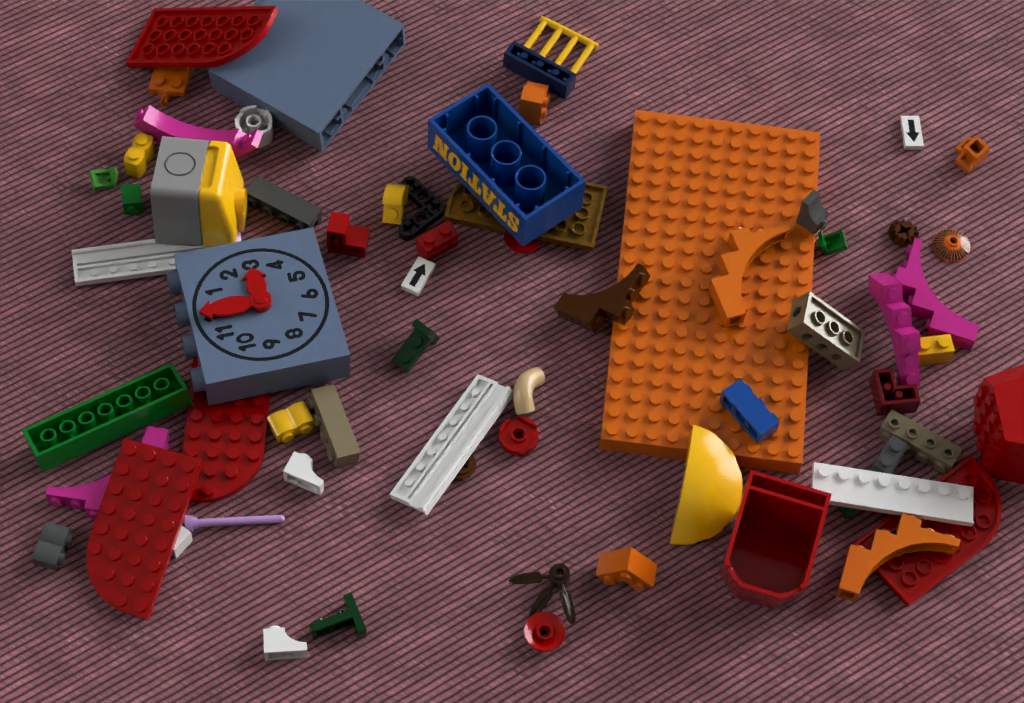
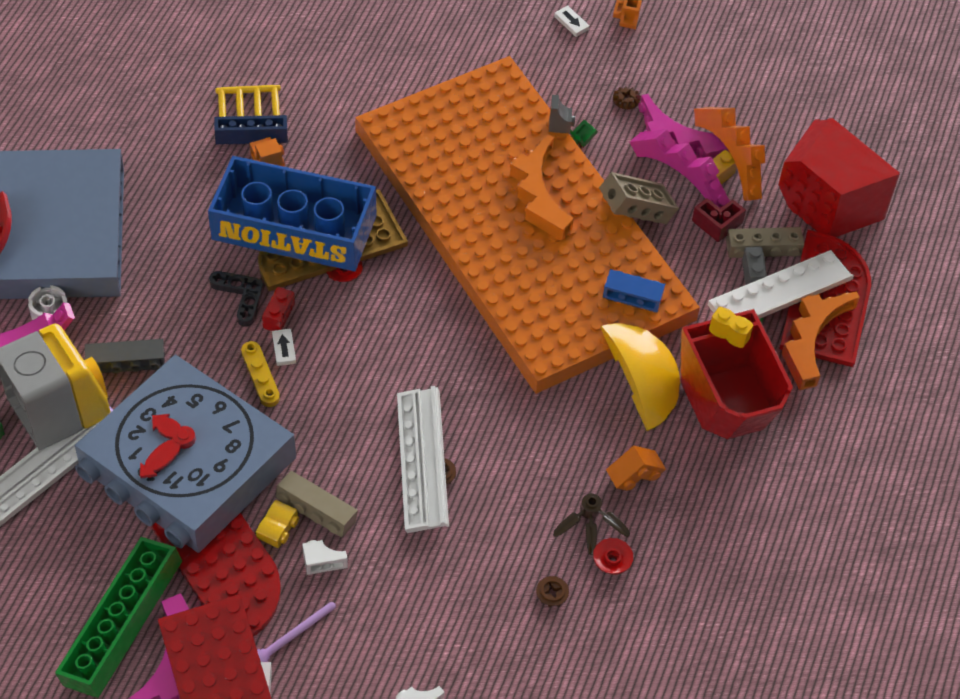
camera: 35 degrees left, 5 degrees down
(340, 620) = (452, 645): dark green bracket -> none
(345, 238) = (202, 350): red brick -> none
(380, 287) = (260, 374): none -> yellow plate
(394, 199) = (219, 300): yellow brick -> none
(414, 346) = (329, 401): dark green bracket -> none
(465, 619) = (556, 584): none -> reddish brown gear
(518, 446) = (464, 430): red plate -> none
(524, 389) = (446, 383): tan cylinder -> none
(612, 303) = (451, 286): reddish brown arch -> none
(793, 499) = (731, 327): none -> yellow brick
(951, 251) = (667, 88): dish -> none
(965, 328) = (737, 139): none -> orange arch

